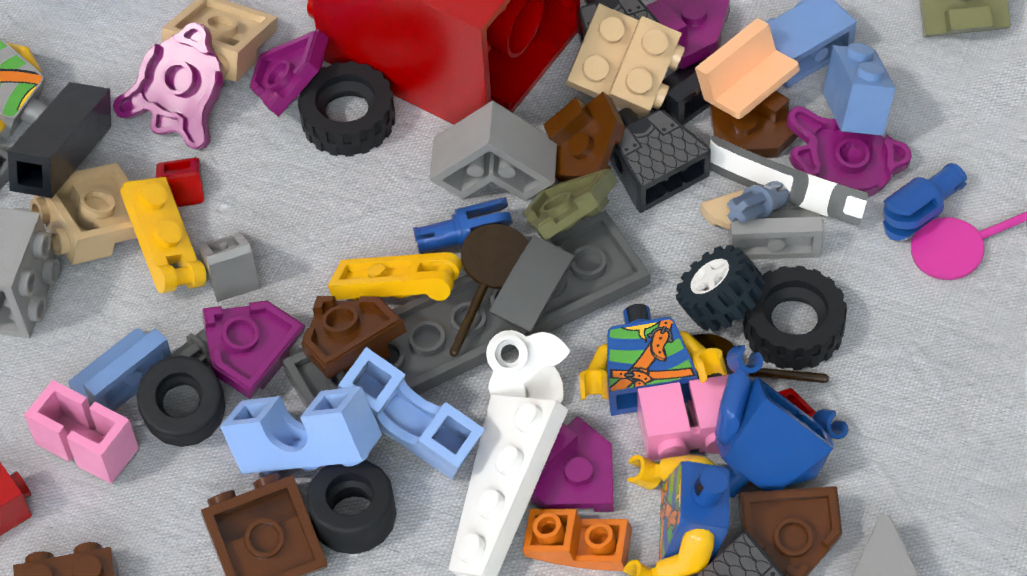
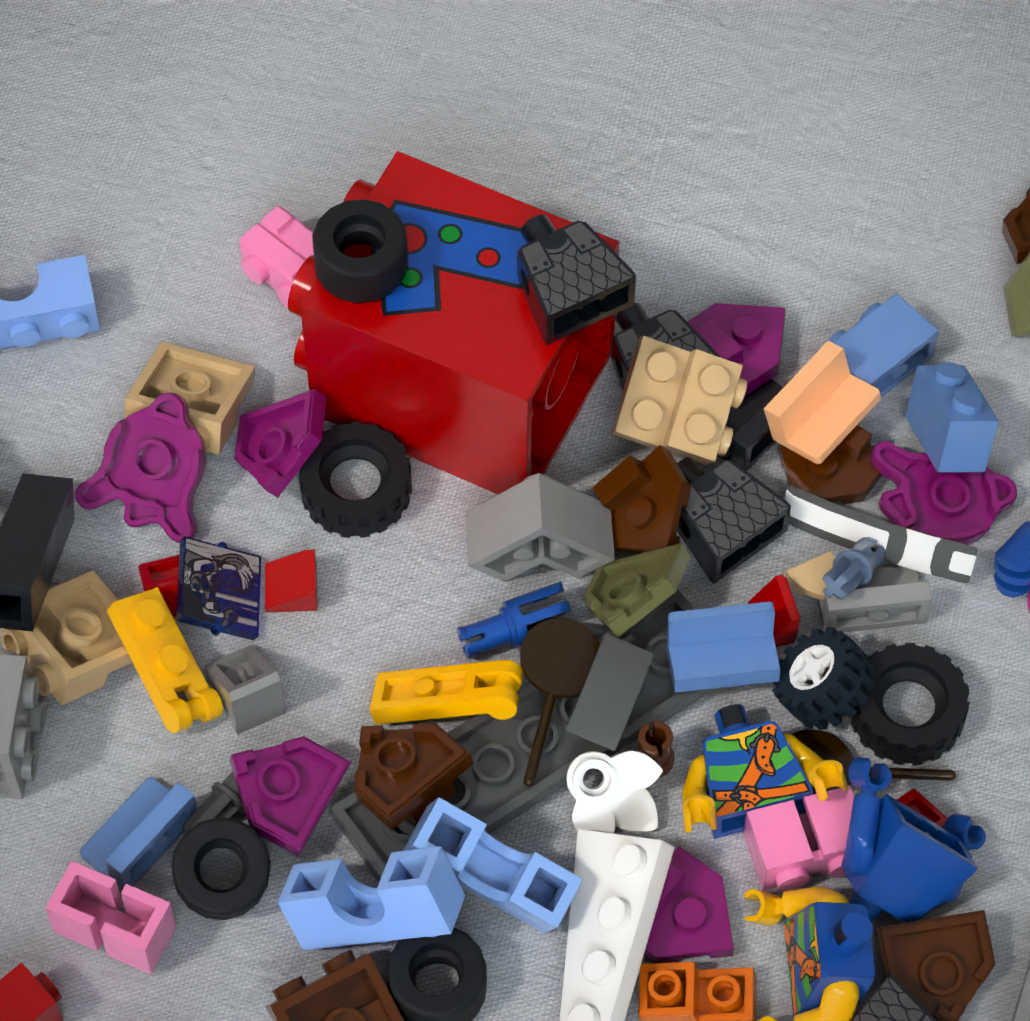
camera: 10 degrees left, 5 degrees up
(218, 184) = (218, 588): none -> piece
(282, 185) = (291, 583): none -> red slope
(569, 333) = (657, 743): none -> reddish brown pin
(635, 253) = (722, 647): none -> medium blue panel
(686, 238) = (786, 612): none -> red slope

